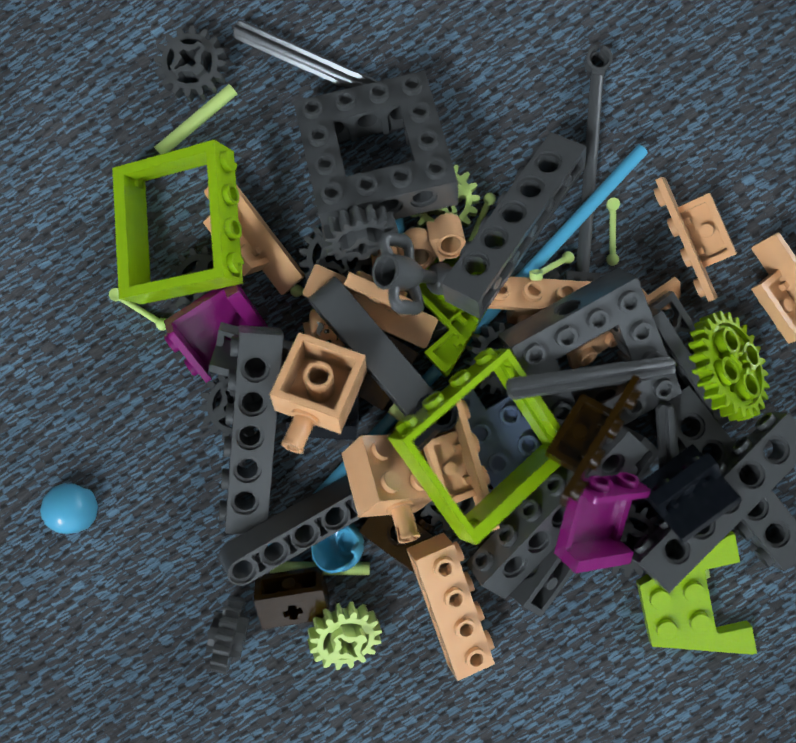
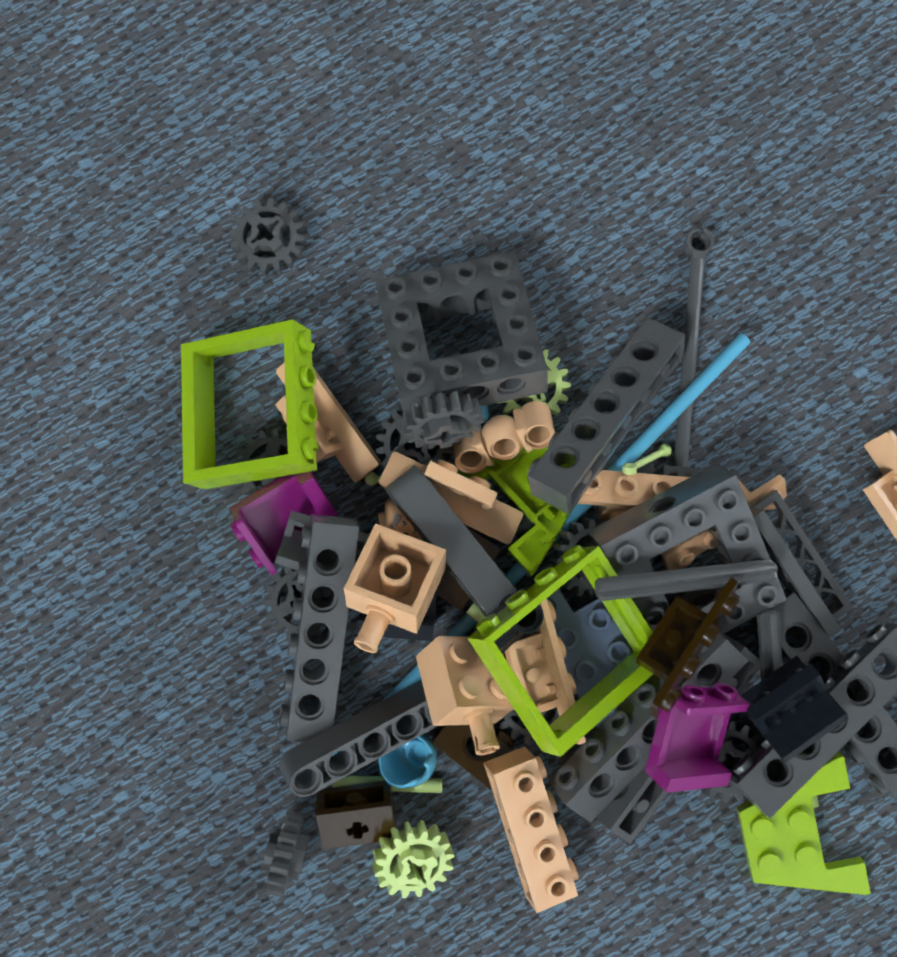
camera: 10 degrees right, 5 degrees down
(69, 508) = (115, 709): medium azure hair -> none
(113, 295) = (177, 479): yellowish green hinge -> none
(196, 120) = (269, 295): yellowish green bar -> none
(299, 56) = (383, 232): axle -> none
(403, 273) = (488, 464): dark grey piece -> none
(489, 199) = (581, 386): yellowish green hinge -> none
(612, 205) = (713, 396): yellowish green hinge -> none
(701, 233) = (808, 428): light nougat bracket -> none
(729, 366) = (837, 572): lime gear -> none

